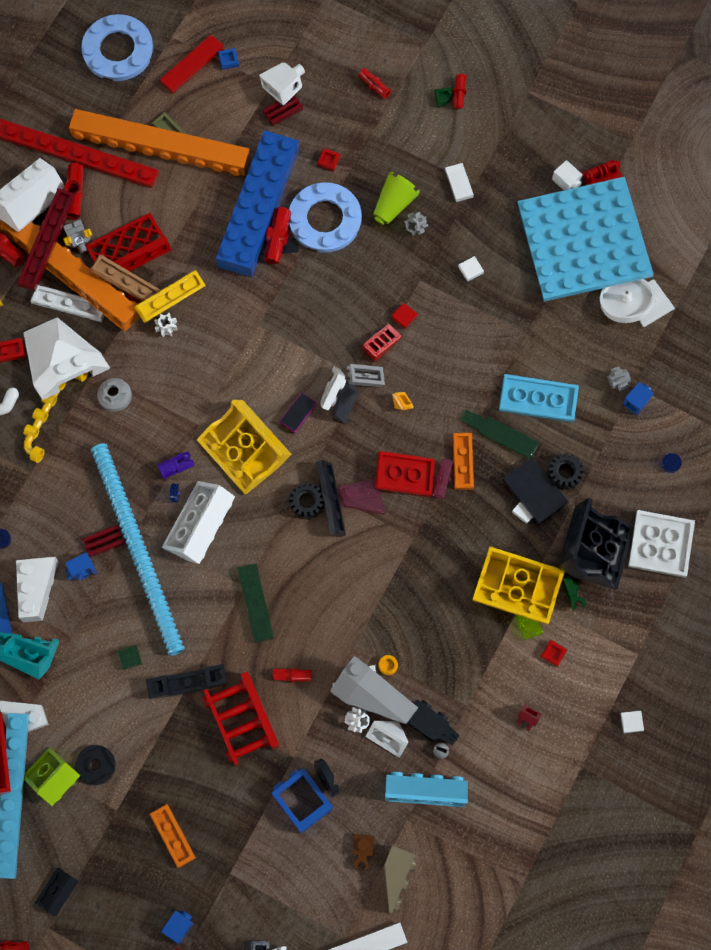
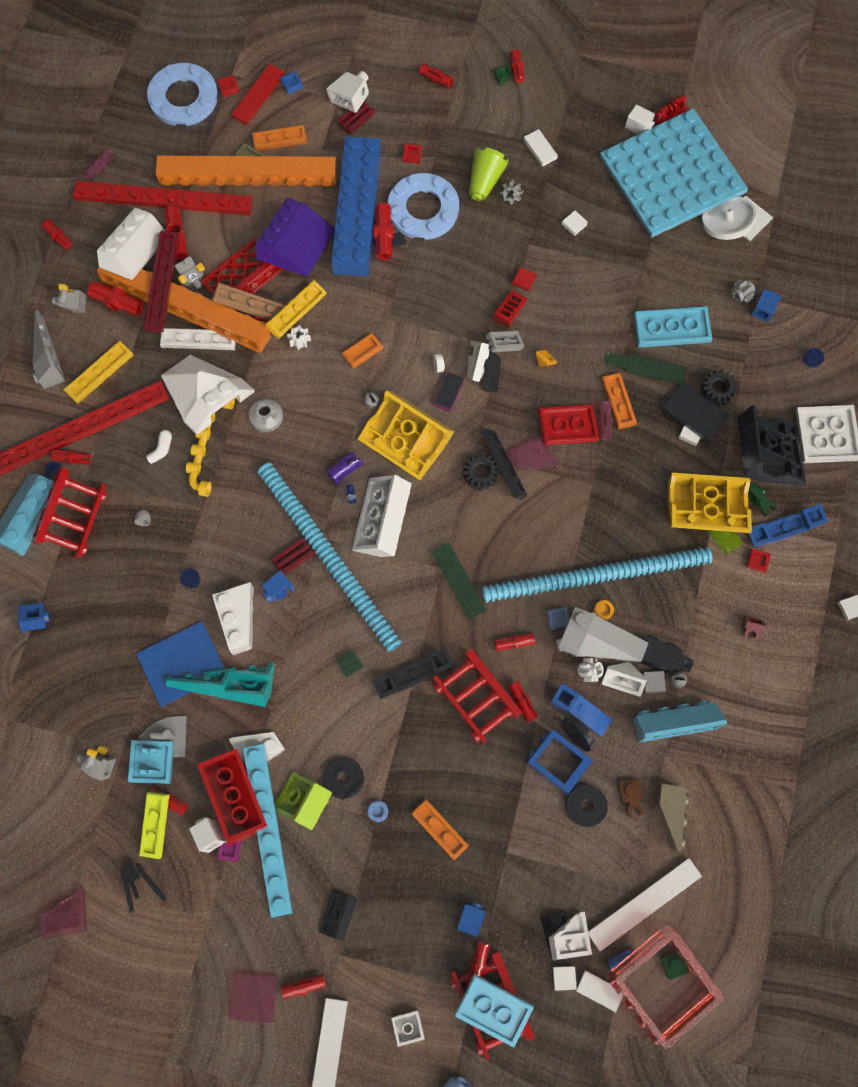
camera: 15 degrees left, 0 degrees up
(17, 103) = (99, 164): none -> clear pink pin
(119, 804) = (378, 811): none -> medium blue tile
(164, 48) = (228, 86): none -> red tile
(187, 224) = (294, 238): none -> dark purple slope
(201, 114) = (279, 138): none -> orange tile
(216, 404) = (368, 403): none -> light grey hinge
(224, 351) = (362, 350): none -> orange tile
(284, 734) = (522, 701): none -> red pin
(295, 382) = (438, 363): none -> white tile
(305, 849) = (598, 801): none -> black tile
(336, 756) = (575, 705): none -> blue slope
(340, 661) = (558, 618): none -> medium blue tile
(391, 629) = (597, 574): none -> medium azure piece
(416, 747) = (655, 682): none -> light grey tile
(591, 626) = (788, 526): none -> blue slope

